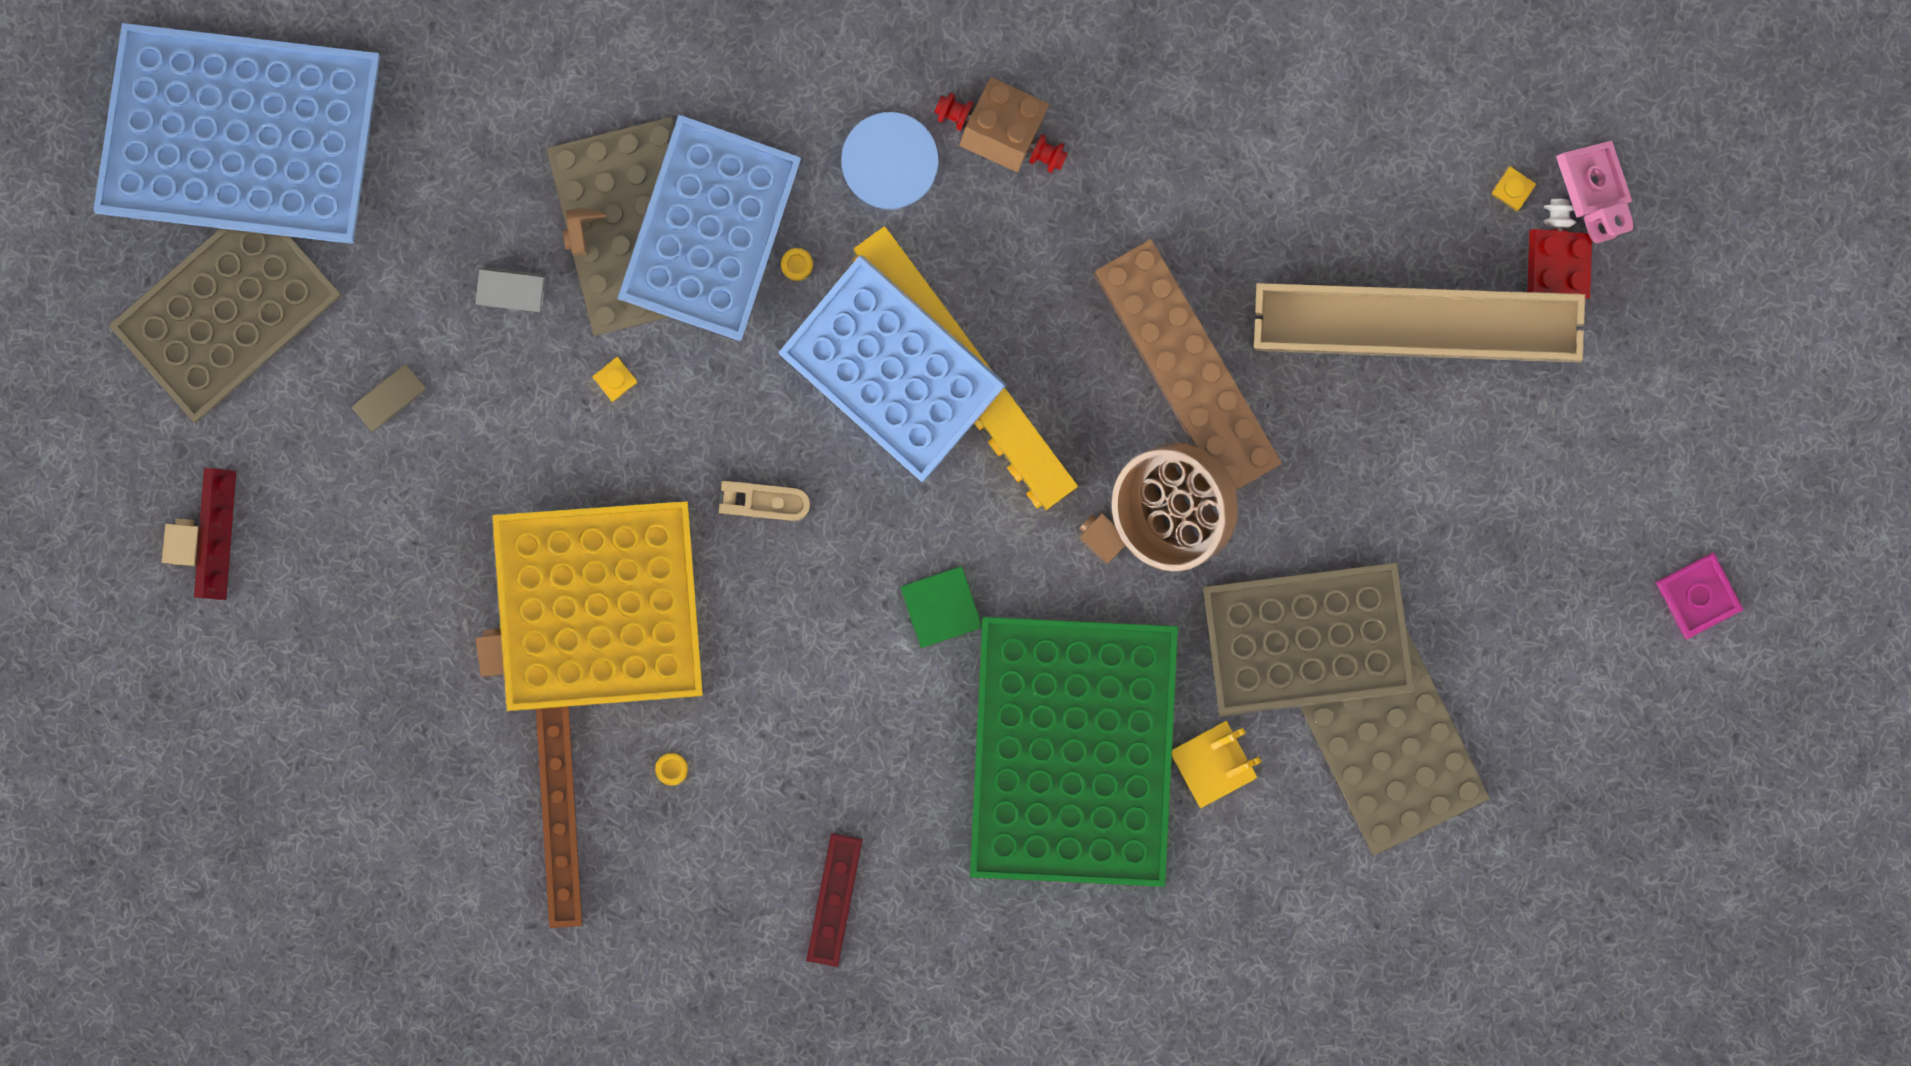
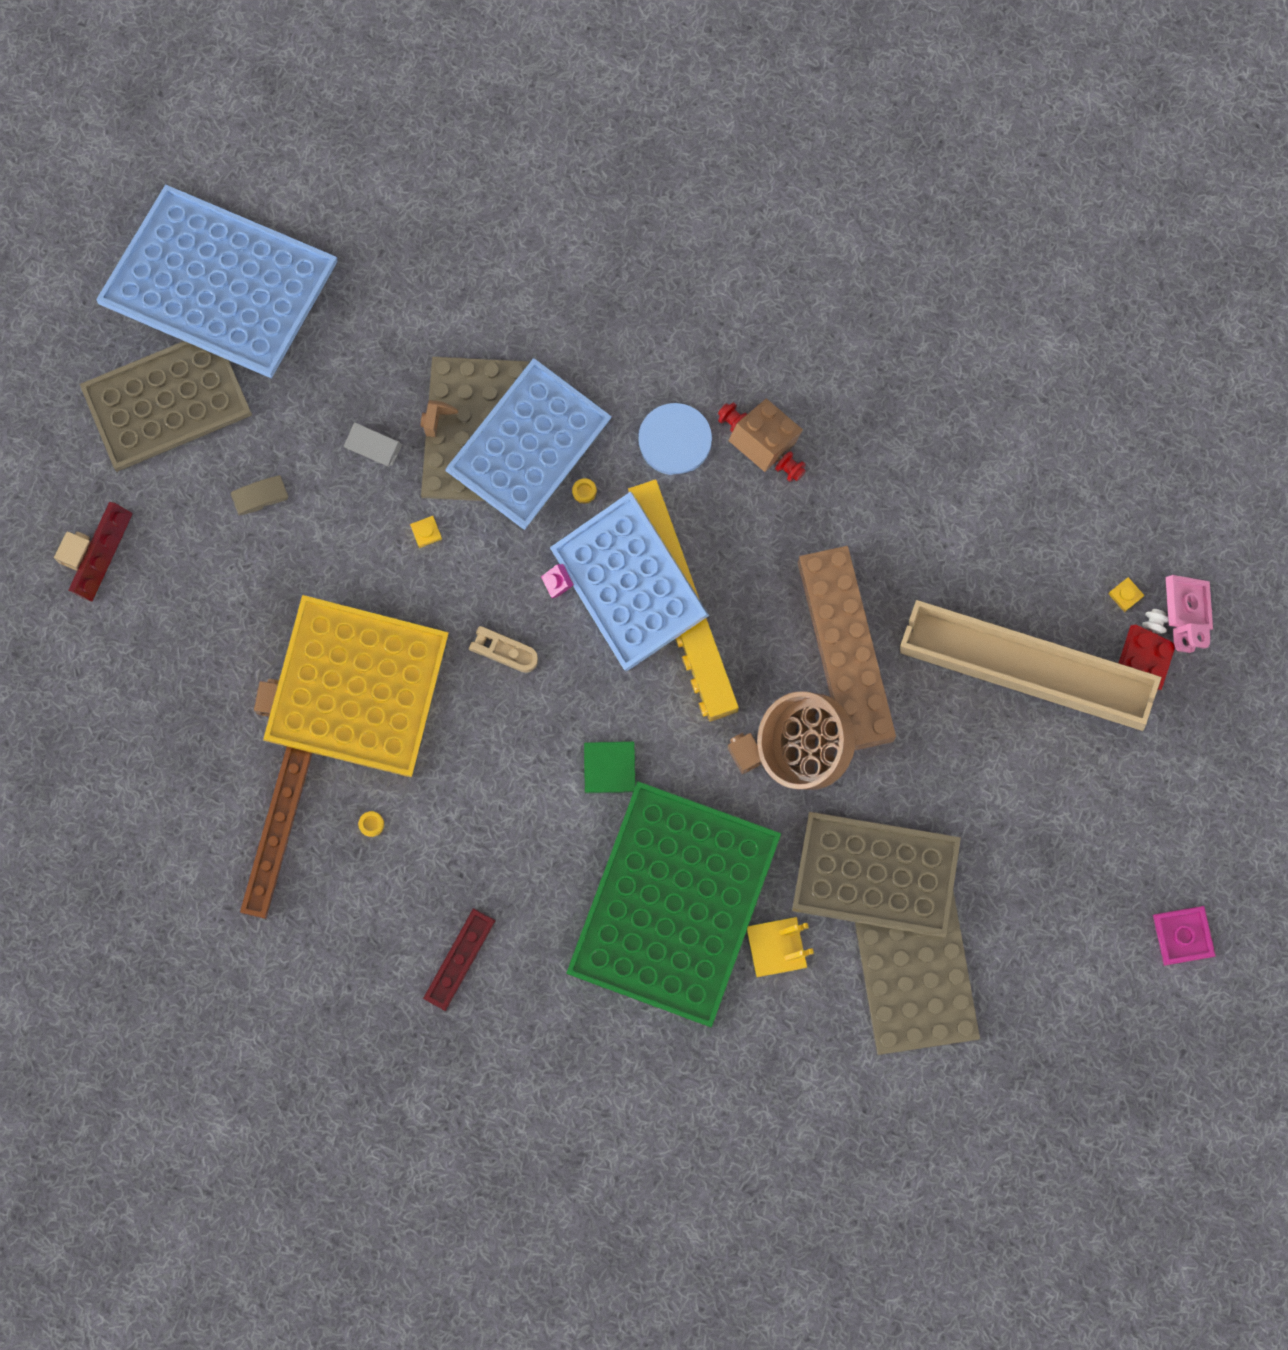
camera: 25 degrees right, 10 degrees down
(801, 392) = (557, 580): none -> plate

